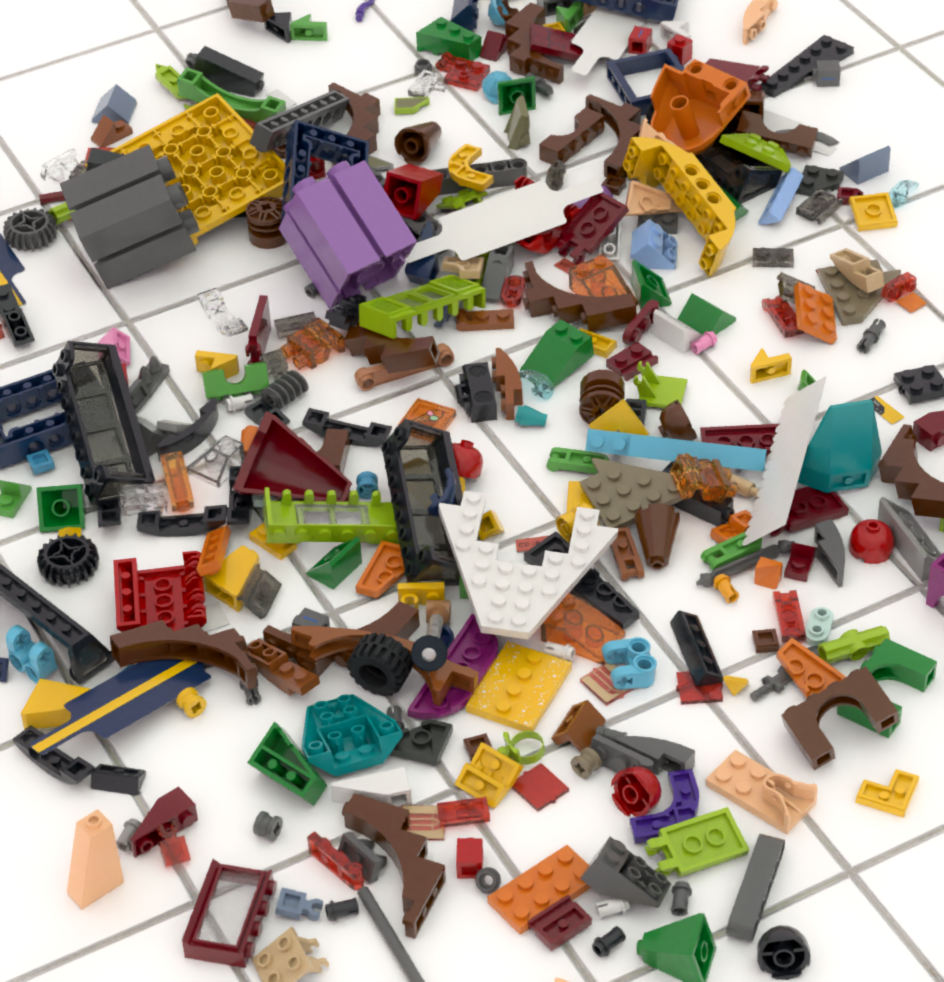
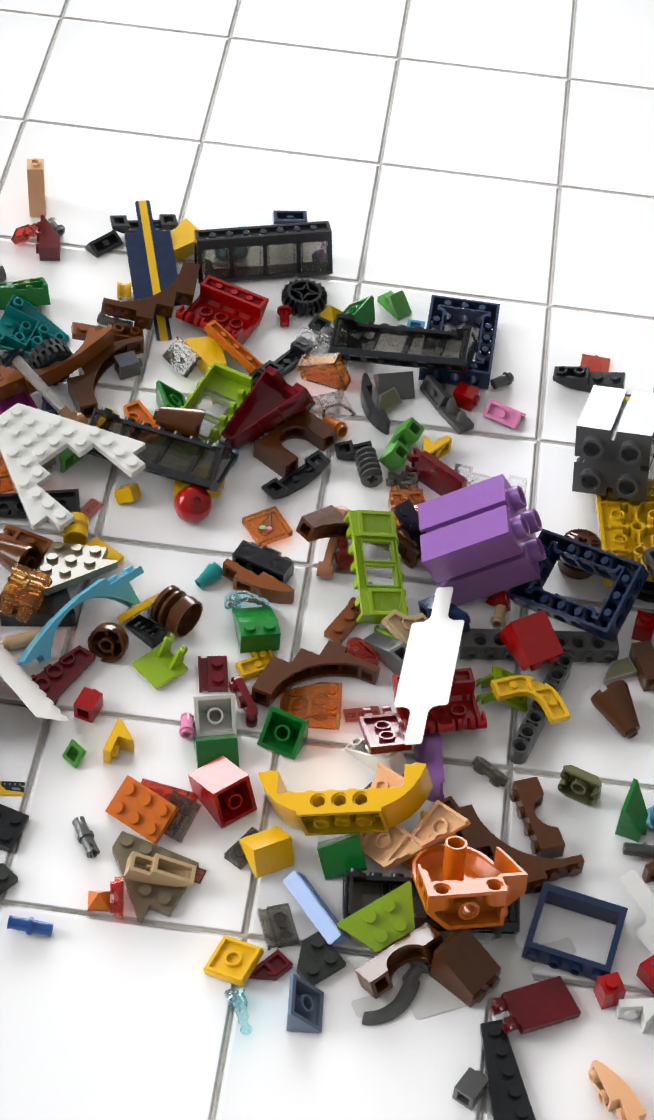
camera: 120 degrees right, 5 degrees up
(106, 562) = (284, 312): none -> red piece
(234, 403) = (383, 440): white pin -> none
(373, 502) = (179, 419): none -> reddish brown cone
(448, 496) = (153, 455): dark blue piece -> none
(573, 460) = (150, 568): bright green plate -> none
(653, 247) = (329, 768): light blue slope -> none
(742, 284) = (223, 790): none -> red slope
(753, 402) = (88, 704): none -> red brick
(766, 234) = (268, 851): none -> yellow slope

